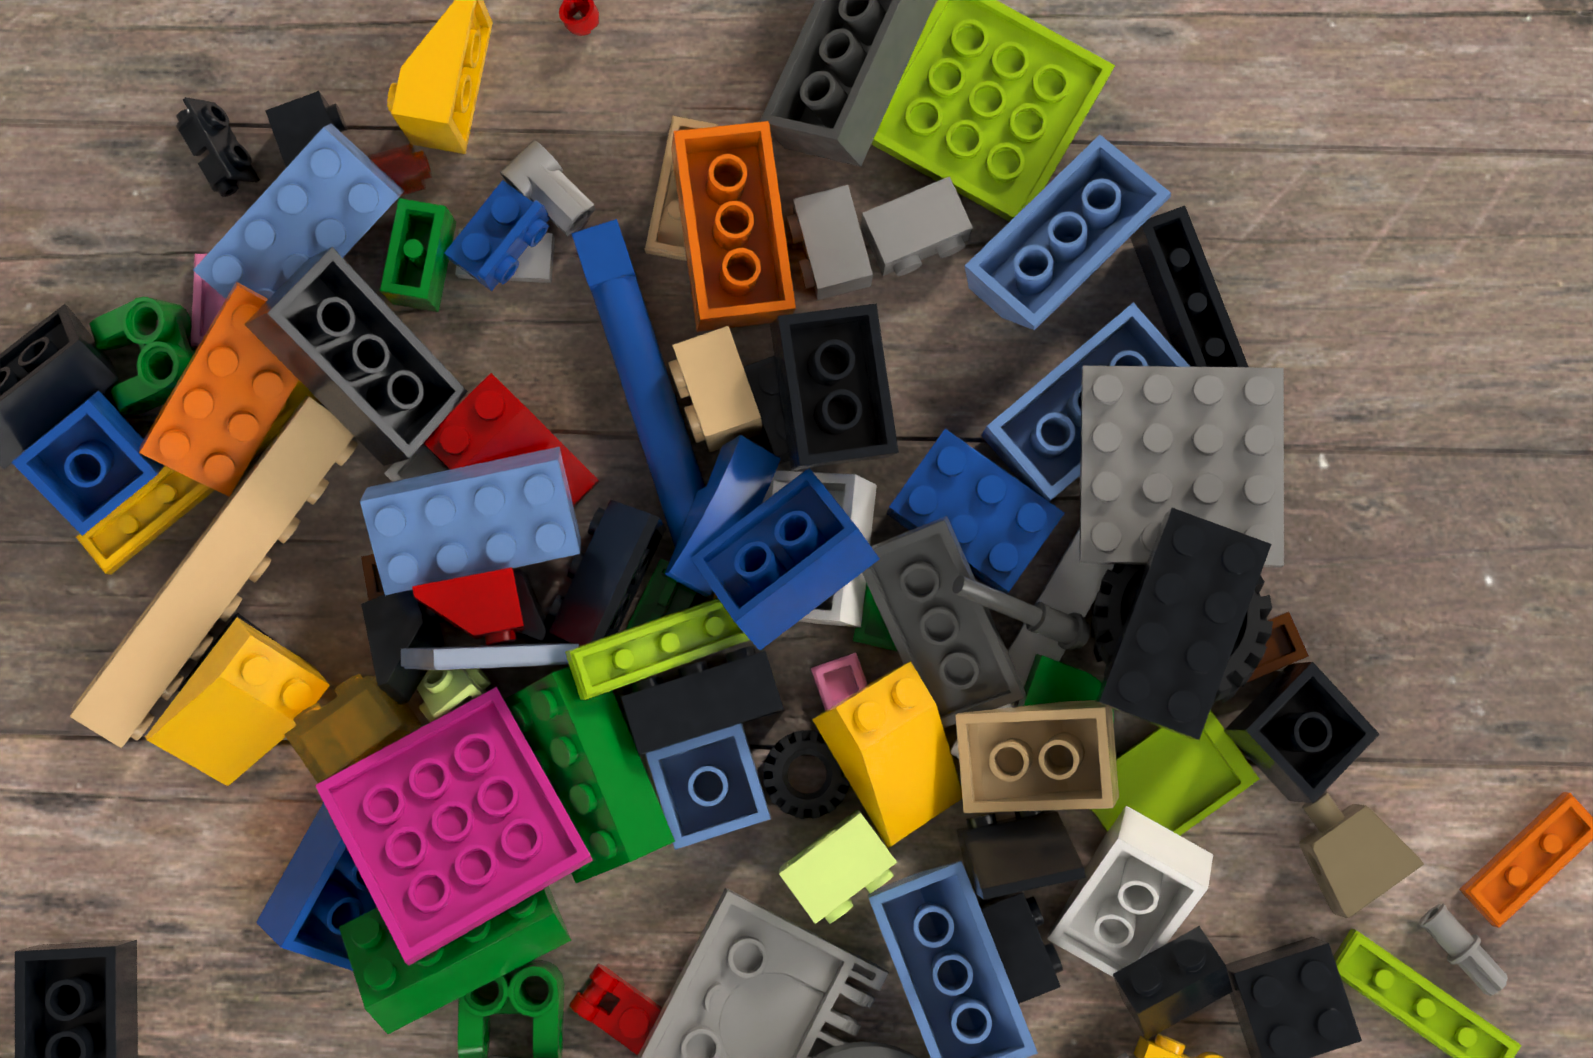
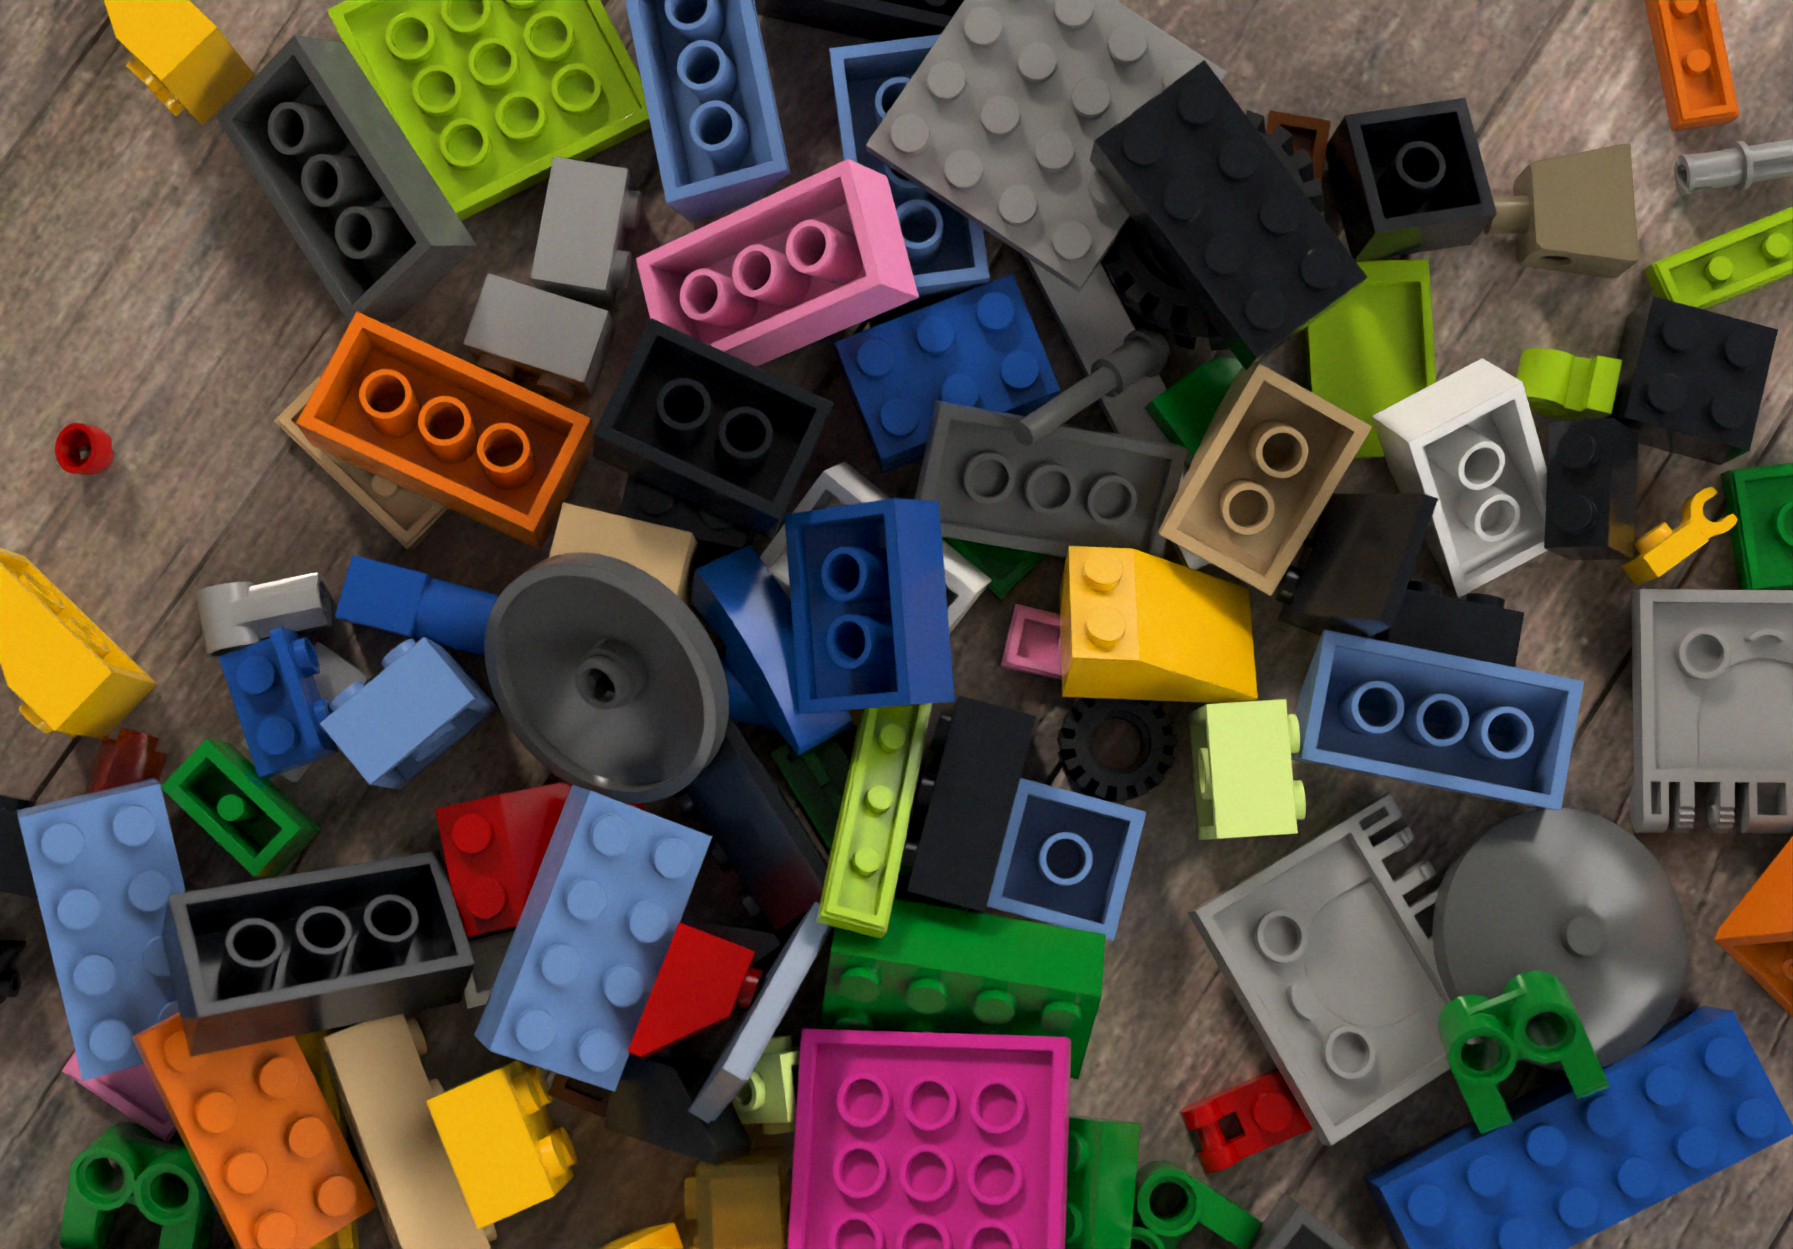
camera: 60 degrees left, 0 degrees up
(313, 547) = (503, 1141): none -> yellow brick
(539, 317) = (407, 713): none -> medium blue brick
(636, 424) = (606, 677): none -> dark grey dish
(968, 366) = (785, 267): none -> bright pink brick
(1234, 922) = (1568, 385): none -> lime leg

